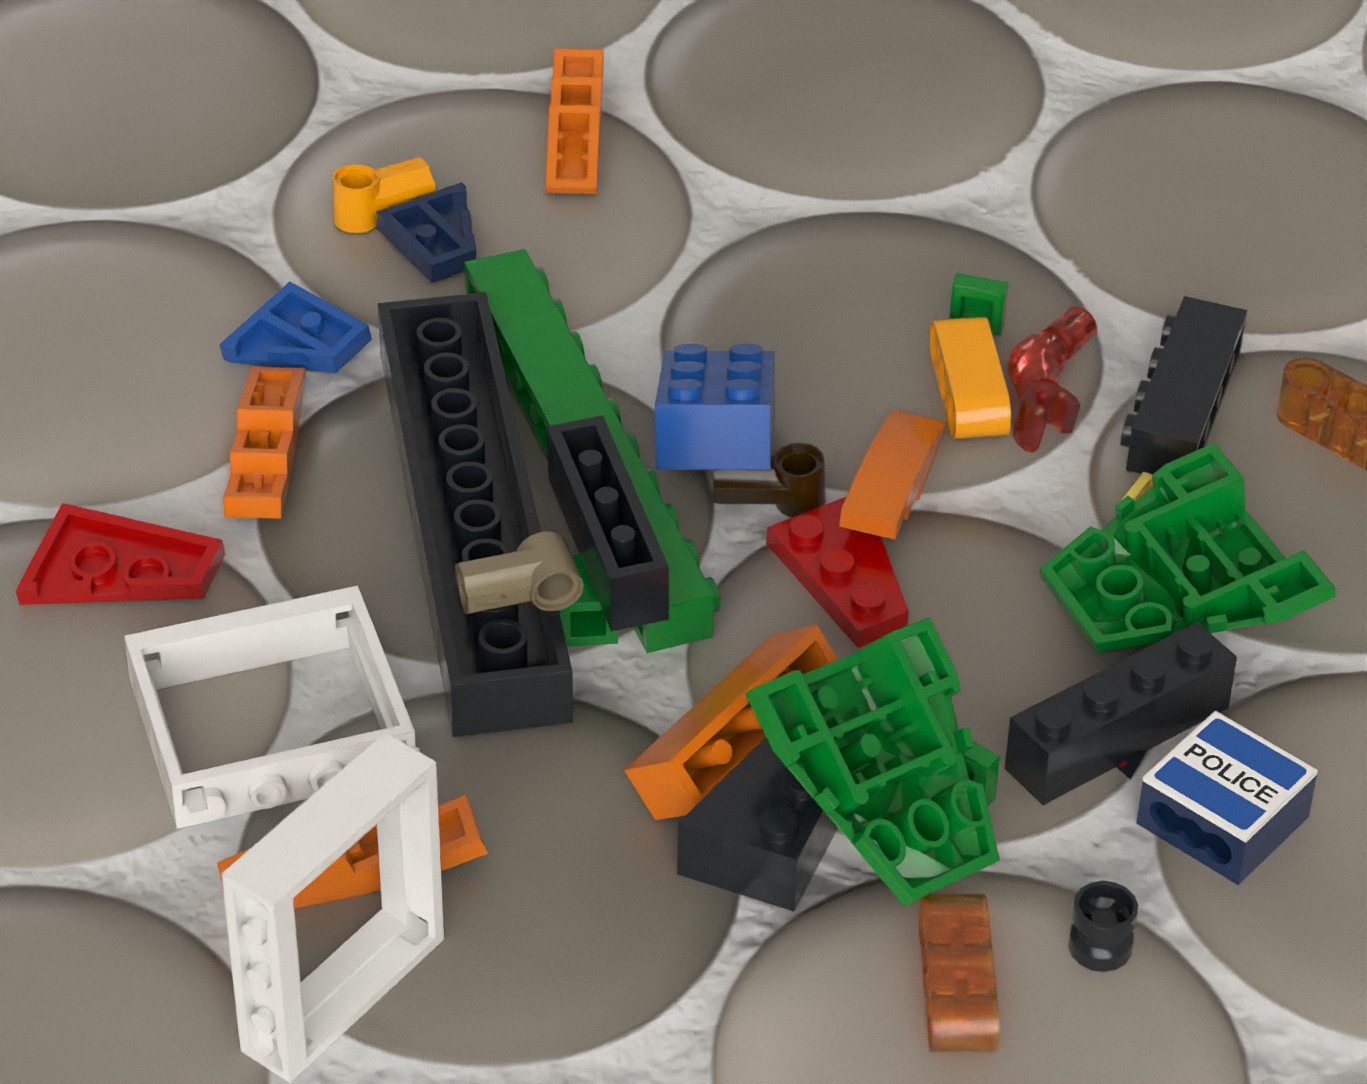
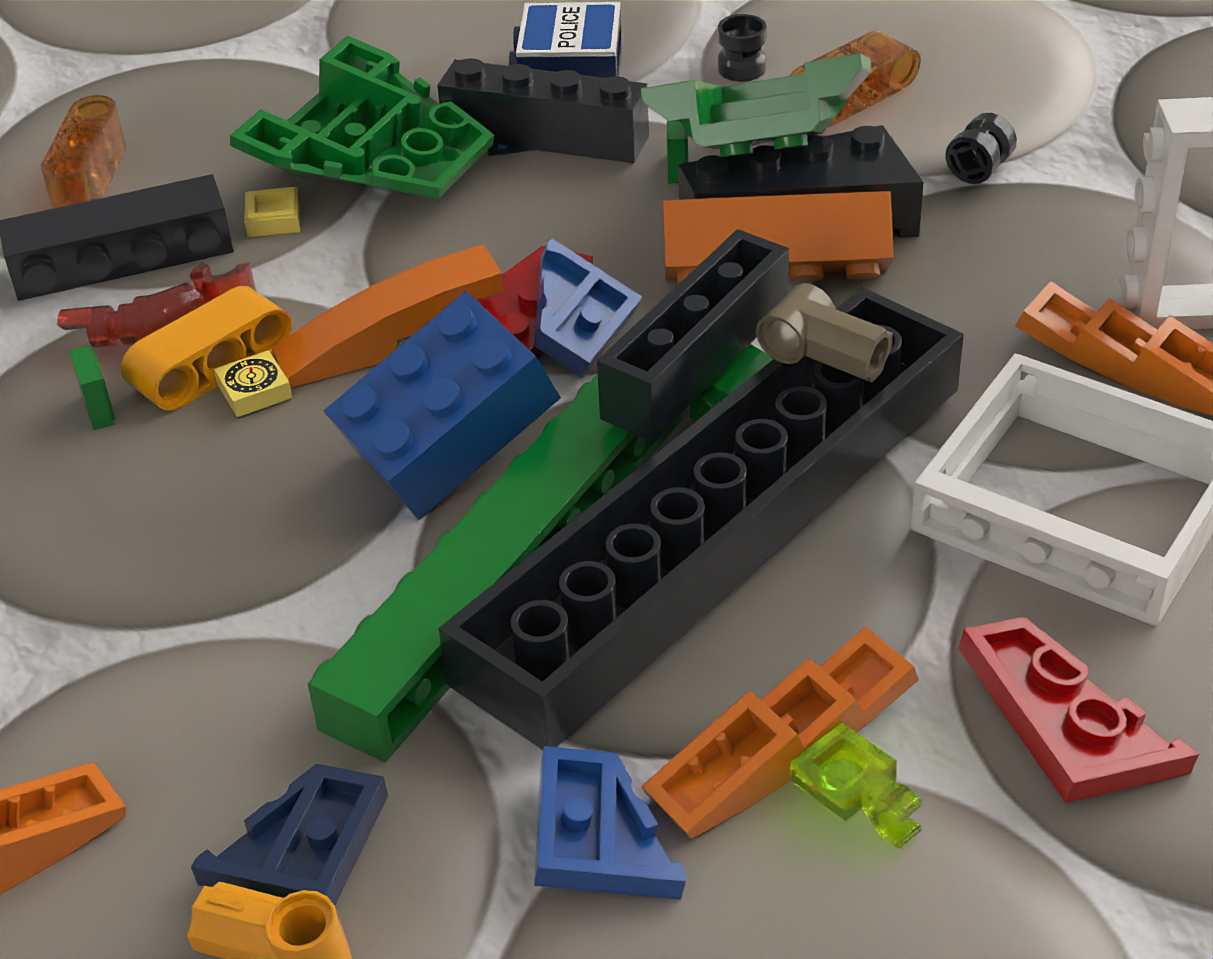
camera: 125 degrees left, 0 degrees up
(194, 443) = (854, 775): none -> clear neon green plate
(723, 959) = (981, 148): none -> black wheel
(785, 571) = (578, 308): none -> wing
(908, 391) = (253, 383): none -> light yellow tile

